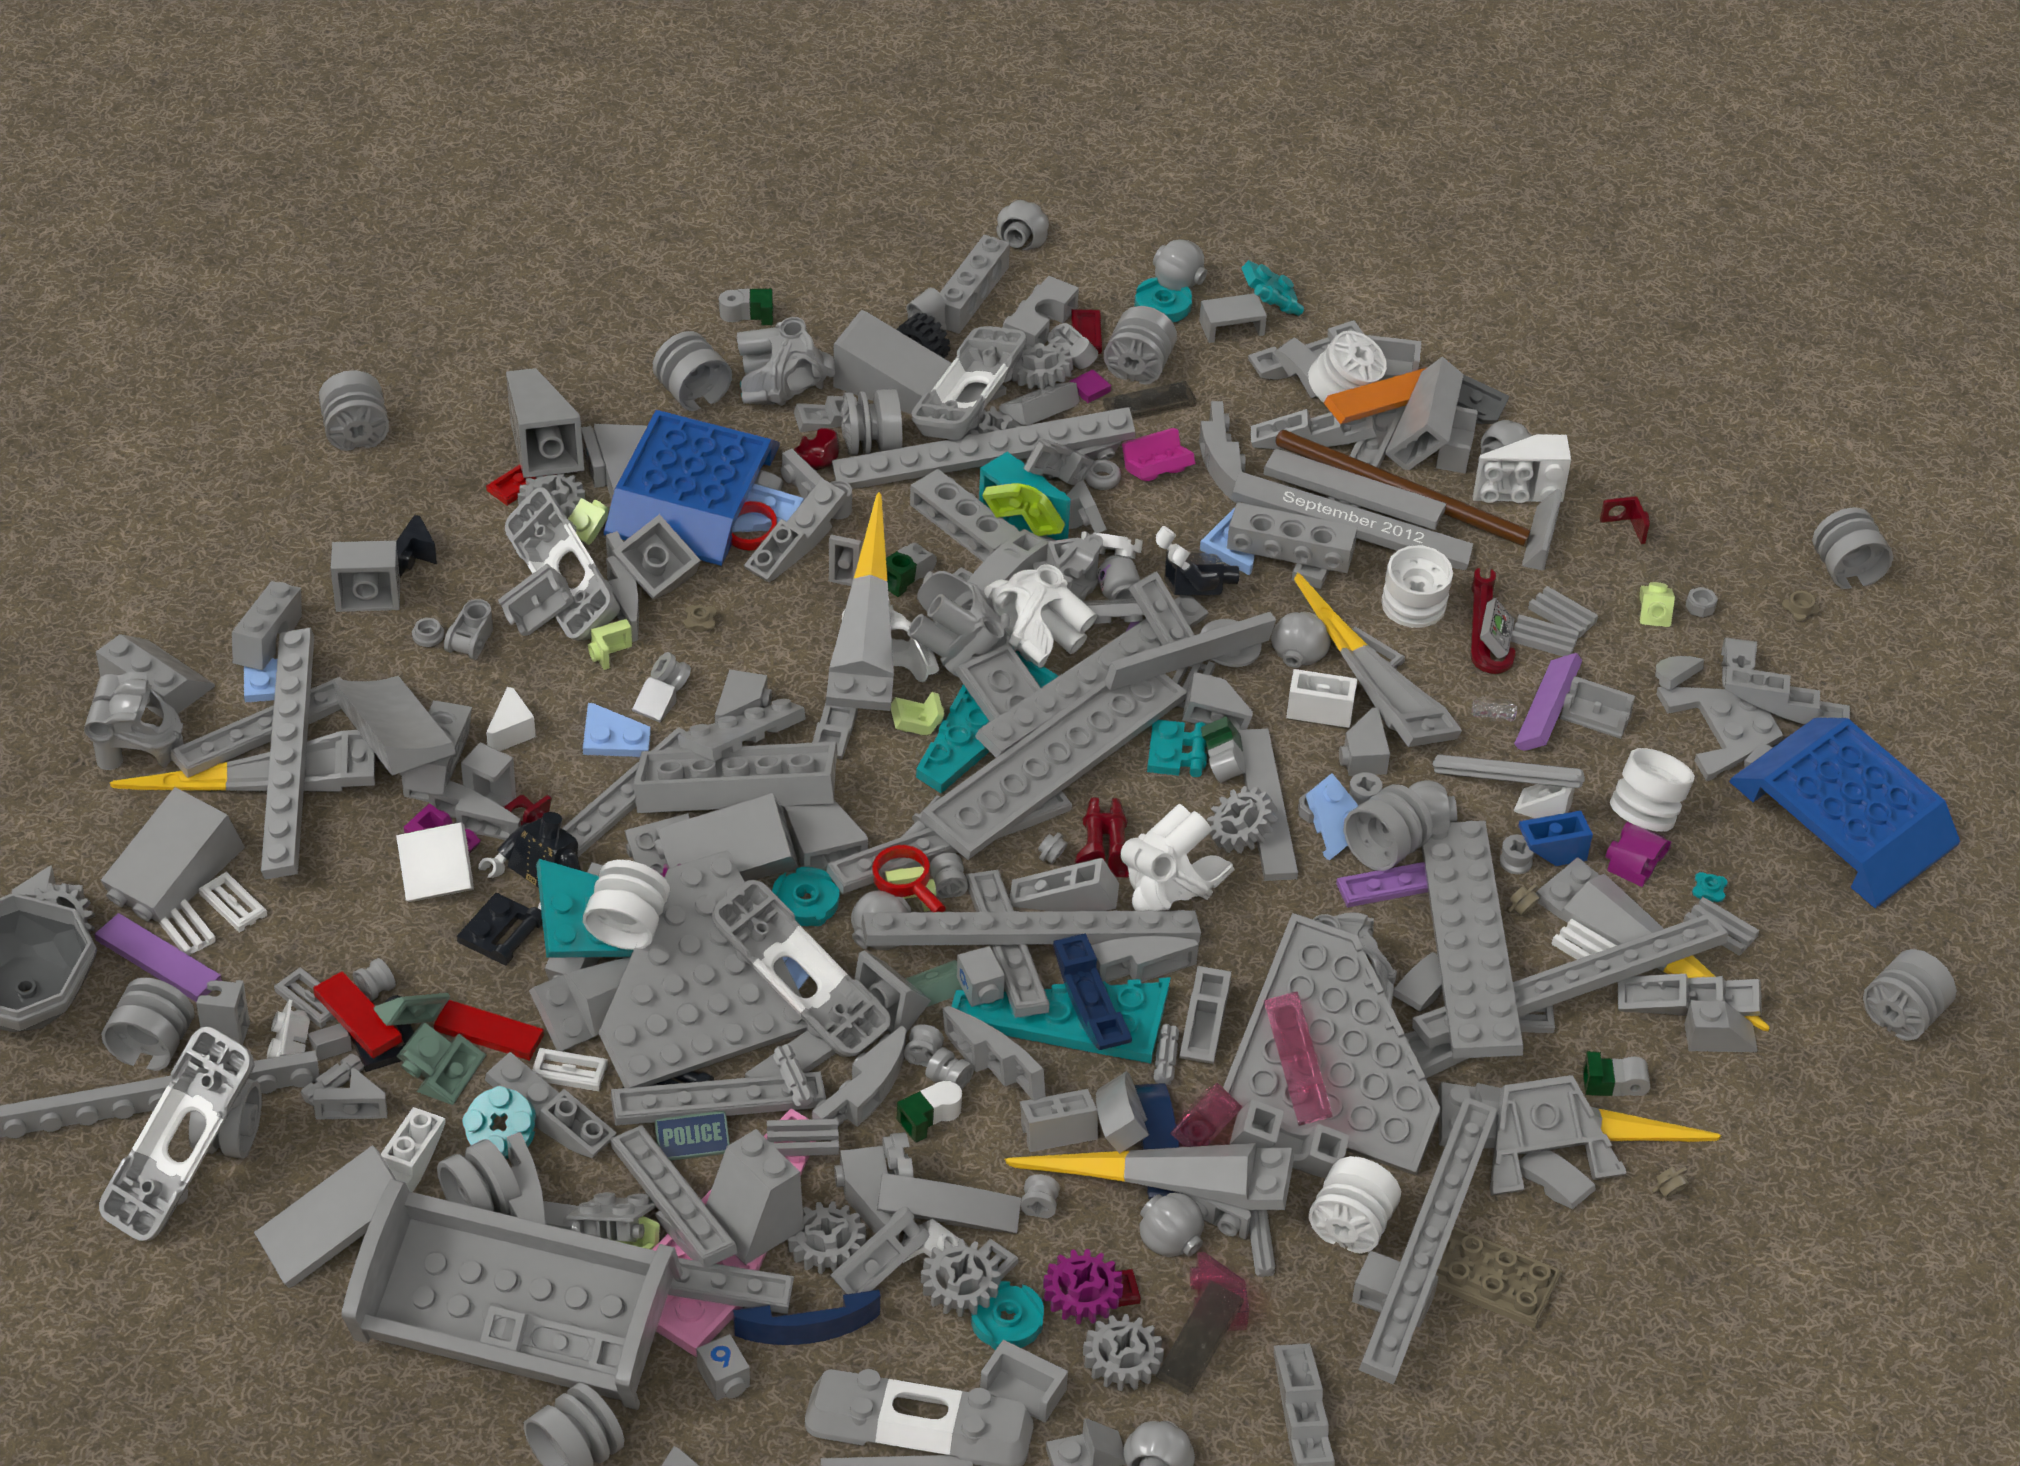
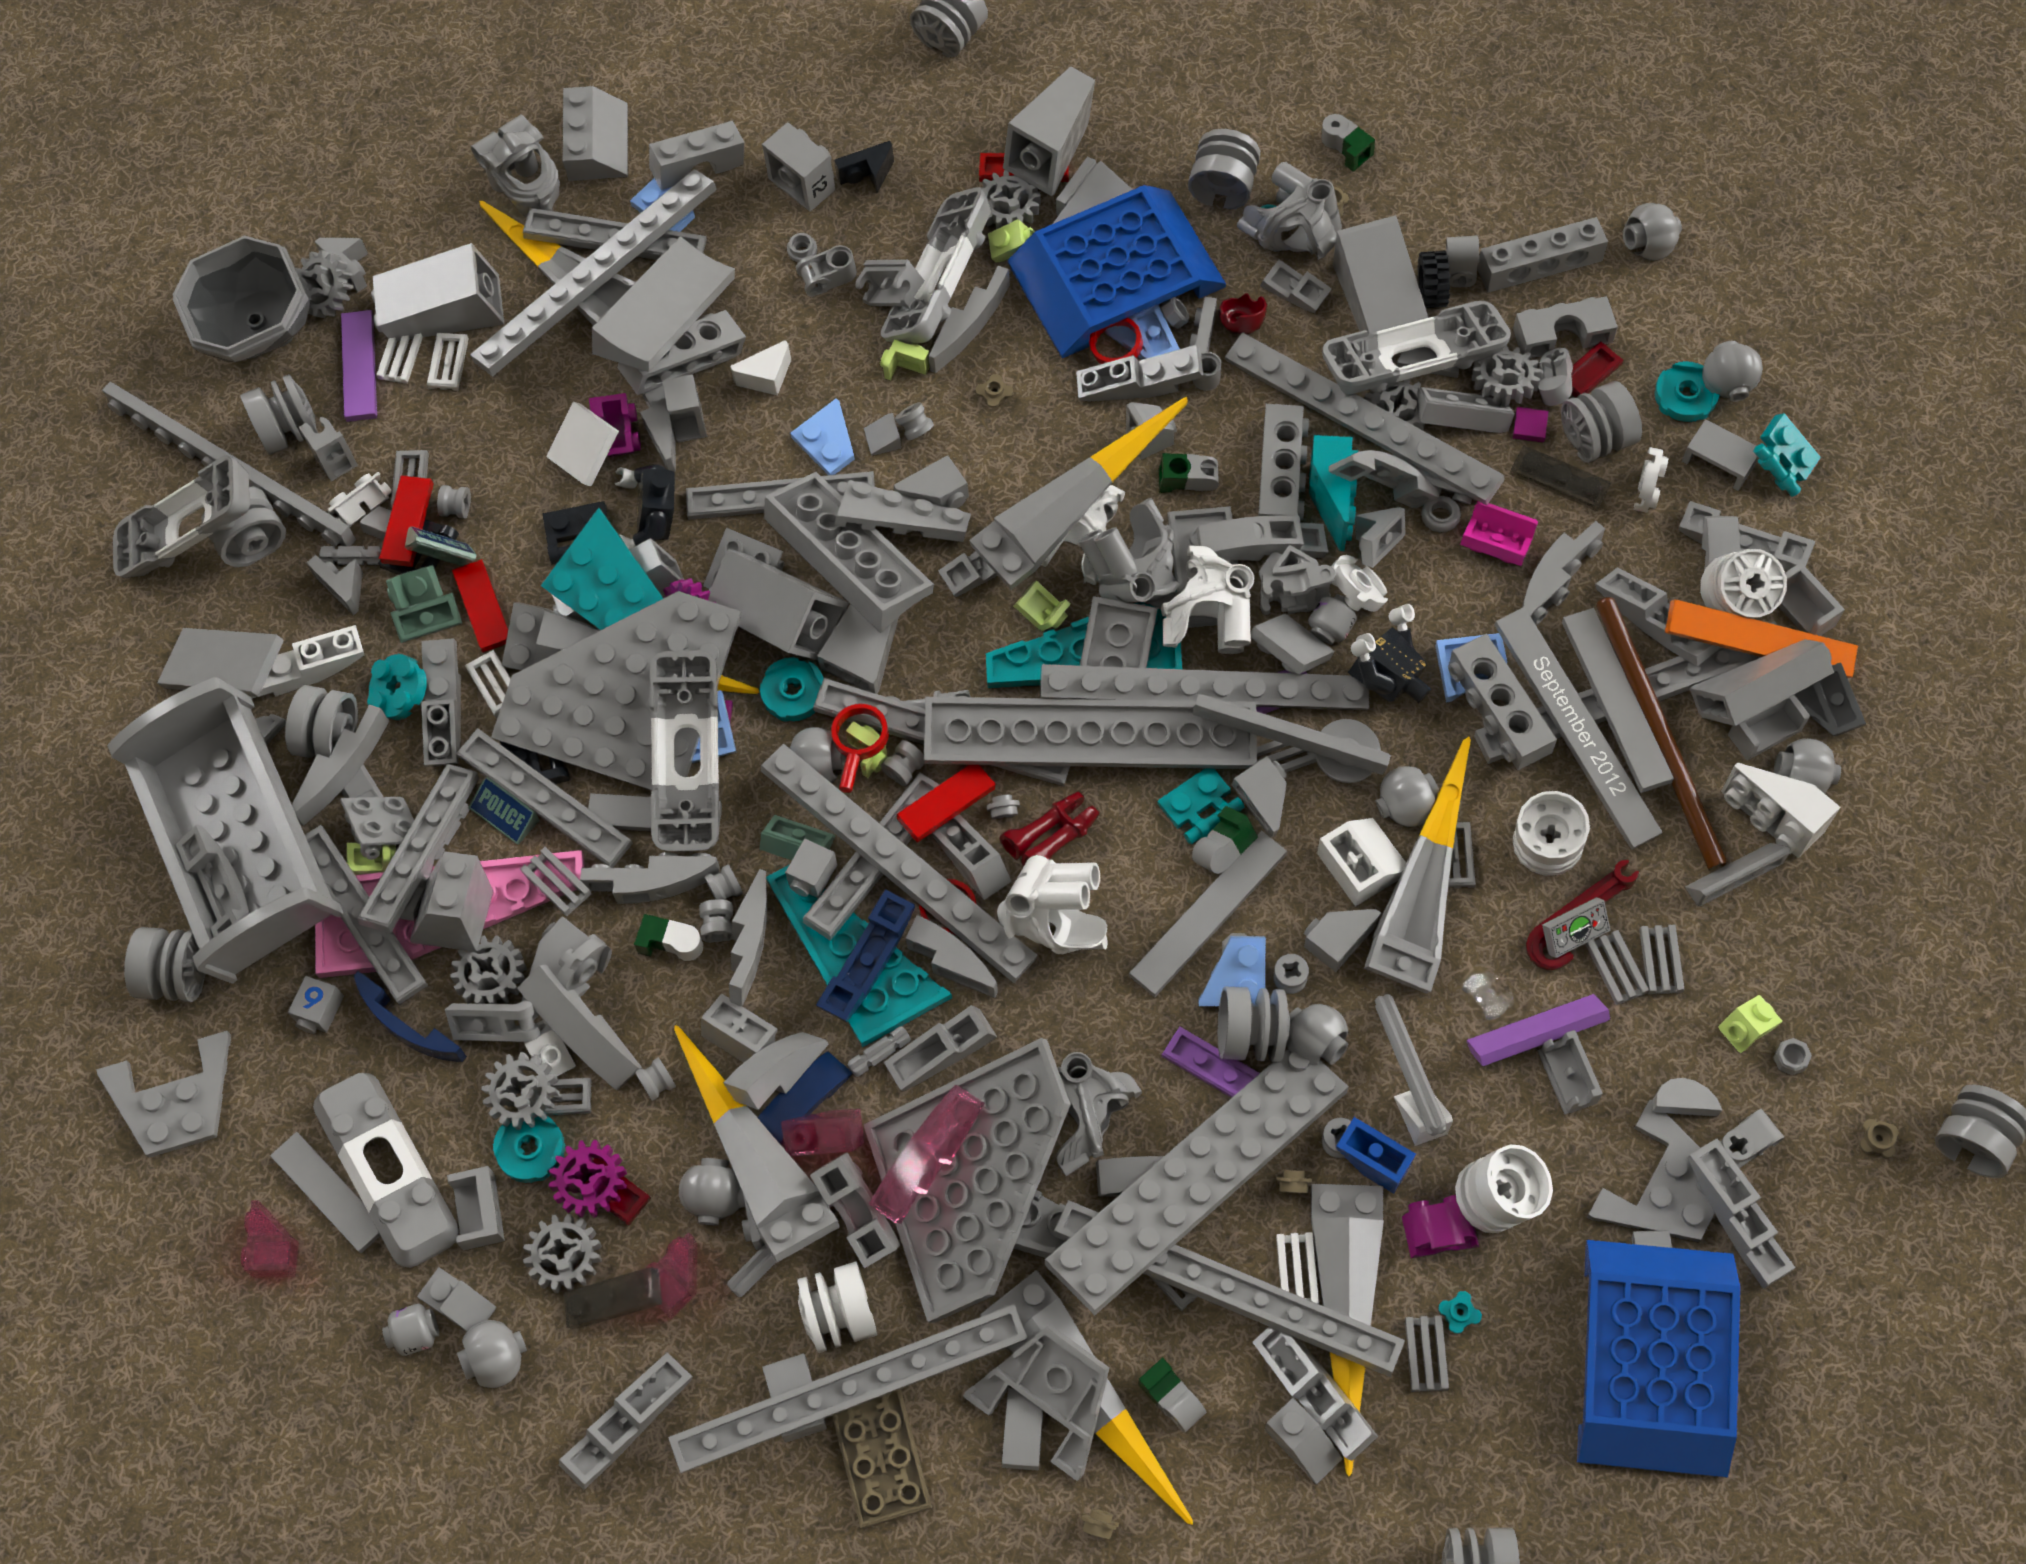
camera: 55 degrees right, 20 degrees up
(533, 811) = (693, 462): dark red bracket -> none
(626, 904) = (604, 597): white wheel -> none
(657, 558) = (1004, 316): light grey slope -> none
(793, 1076) = (600, 828): light grey axle -> none
(872, 421) = (1303, 322): light grey wheel -> none
(892, 990) = (746, 820): light grey slope -> none
(1011, 872) = (945, 801): none -> red tile
(1028, 501) = (1307, 484): lime plate -> none
(1160, 609) = (1305, 683): light grey tile -> none
(1213, 355) = (1648, 479): none -> white plate
(1242, 819) = (1161, 912): light grey gear -> none
(1633, 512) = (1838, 917): dark red bracket -> none

